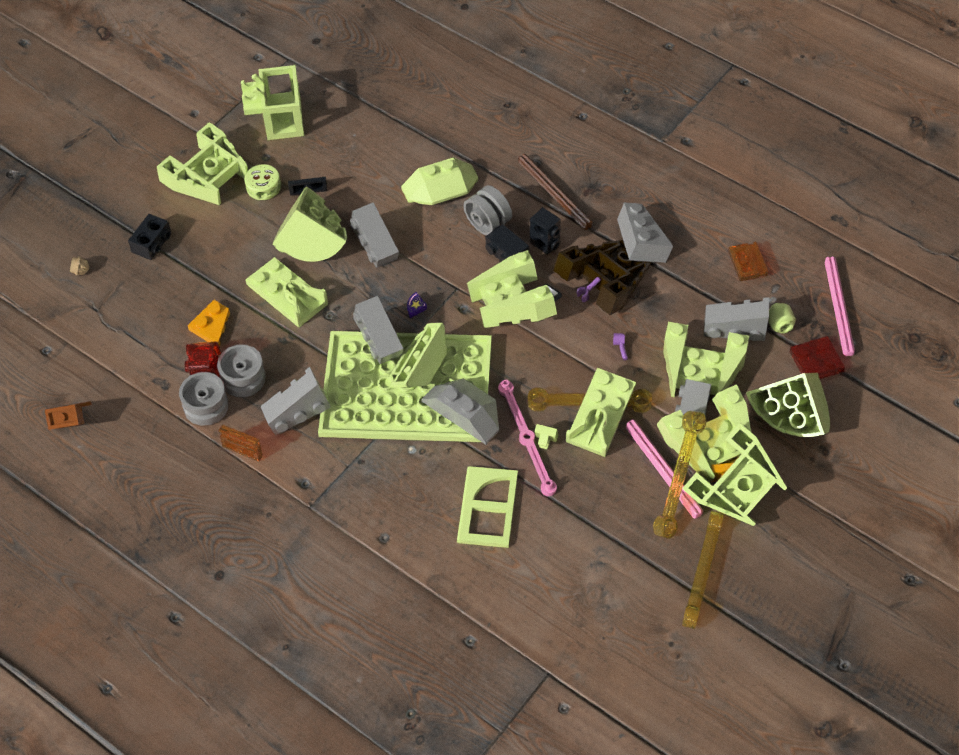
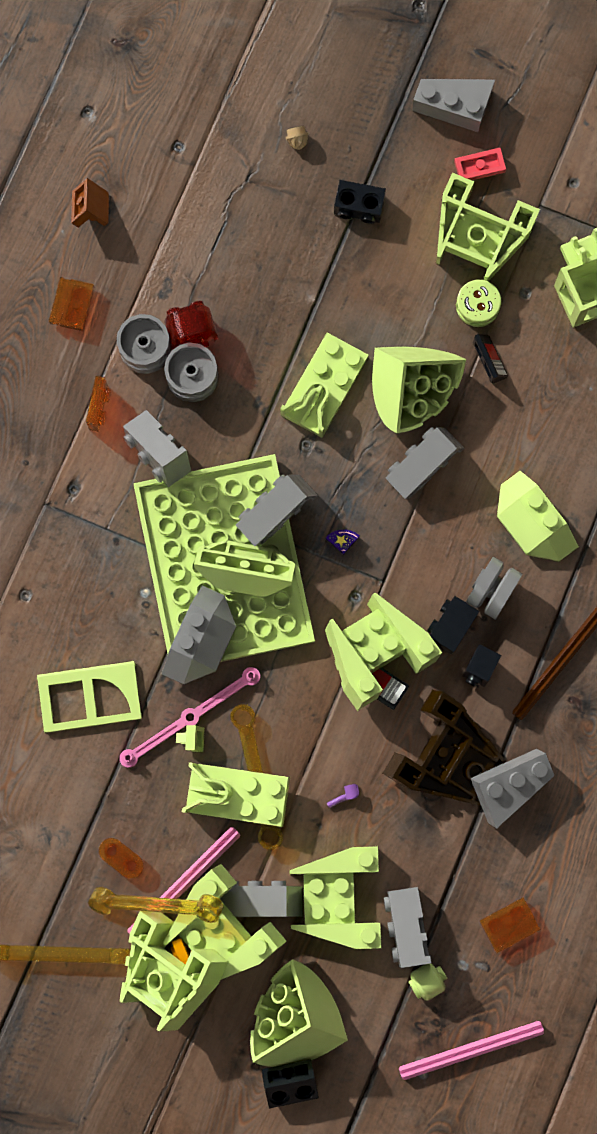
camera: 75 degrees right, 25 degrees up
(99, 162) = (454, 100): none -> light grey wedge
(146, 448) = (71, 304): none -> clear orange plate
(155, 155) = (480, 164): none -> coral plate
(210, 322) = (258, 314): light orange wing -> none
(585, 290) = (416, 739): medium lavender hand -> none
(630, 508) = (121, 858): none -> clear orange plate
(817, 357) = (383, 1035): clear red plate -> none
(844, 422) = (290, 1083): none -> black brick

